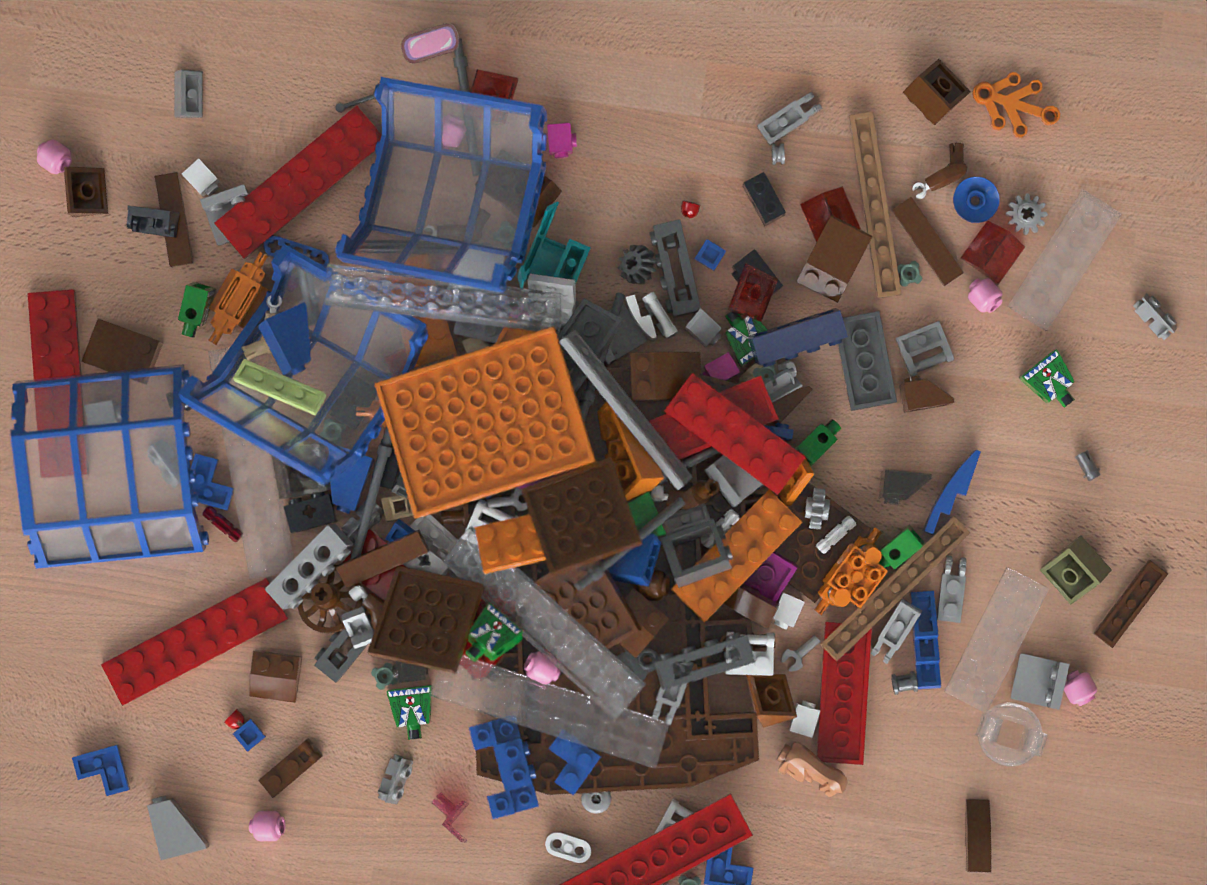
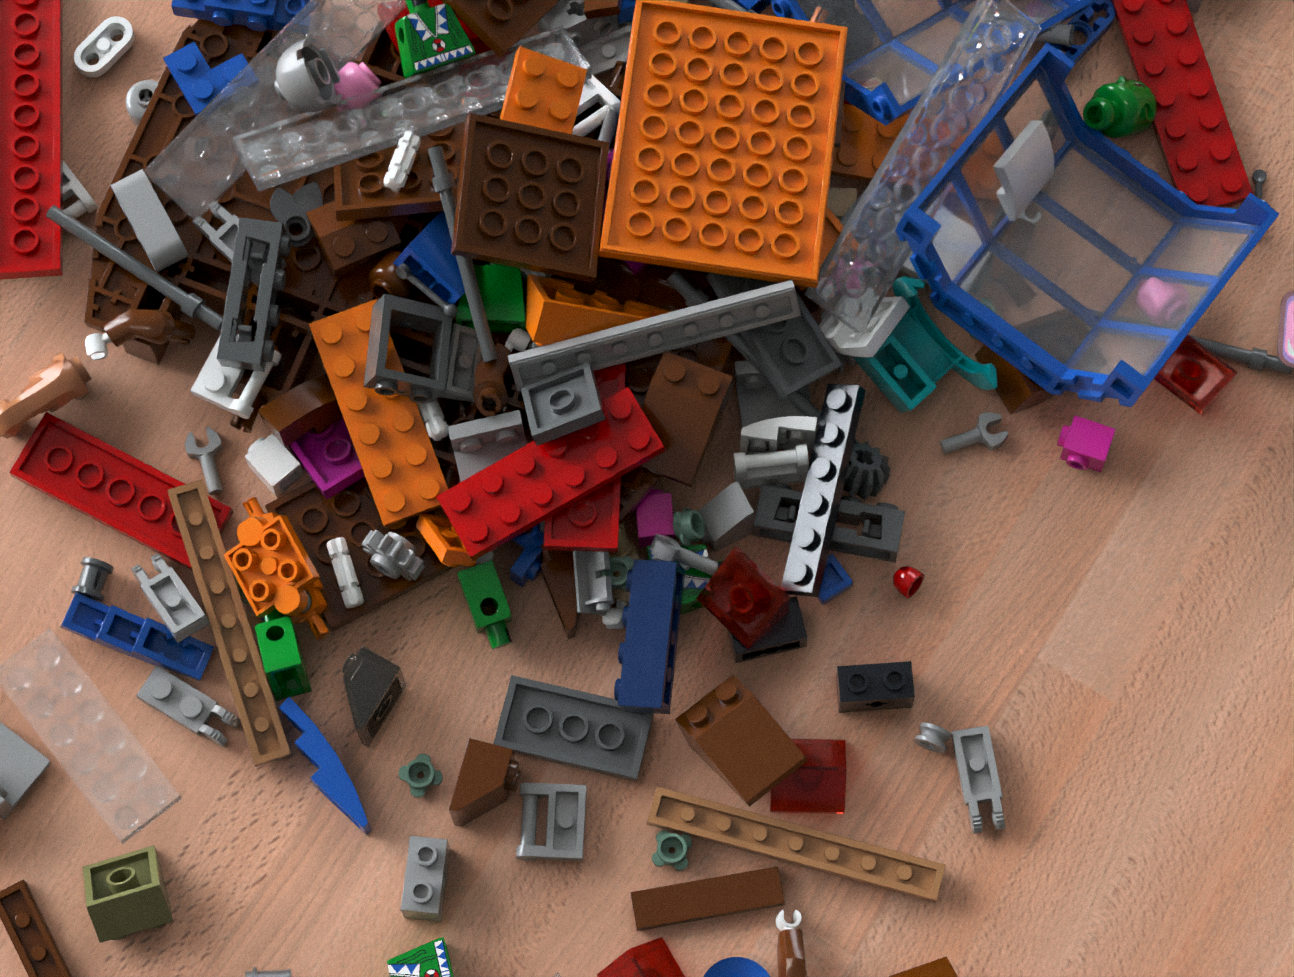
camera: 115 degrees right, 15 degrees down
(339, 205) = (1121, 108): none -> green piece
(416, 240) = (1024, 169): none -> white slope
(558, 692) = (307, 77): none -> light grey cylinder
(581, 207) = (977, 435): none -> light grey bar
(587, 608) = (402, 161): none -> white axle
(653, 575) = (404, 272): none -> dark grey hinge
(664, 276) = (823, 490): none -> plate
(682, 750) = (149, 220): none -> light grey beam
(693, 443) = (562, 403): none -> dark grey plate
(720, 345) = (688, 526): none -> sand green plate
(721, 700) = (190, 303): none -> dark grey bar
(742, 348) = (669, 550): none -> light grey bar
(747, 721) = (145, 324): none -> reddish brown arm
(771, 698) = (161, 382): dark orange slope -> none
(805, 720) = (112, 421): white brick -> none
(930, 430) = (420, 764): none -> sand green plate
(985, 295) = (588, 943): bright pink head -> none
(991, 403) = (425, 878): none -> light grey brick

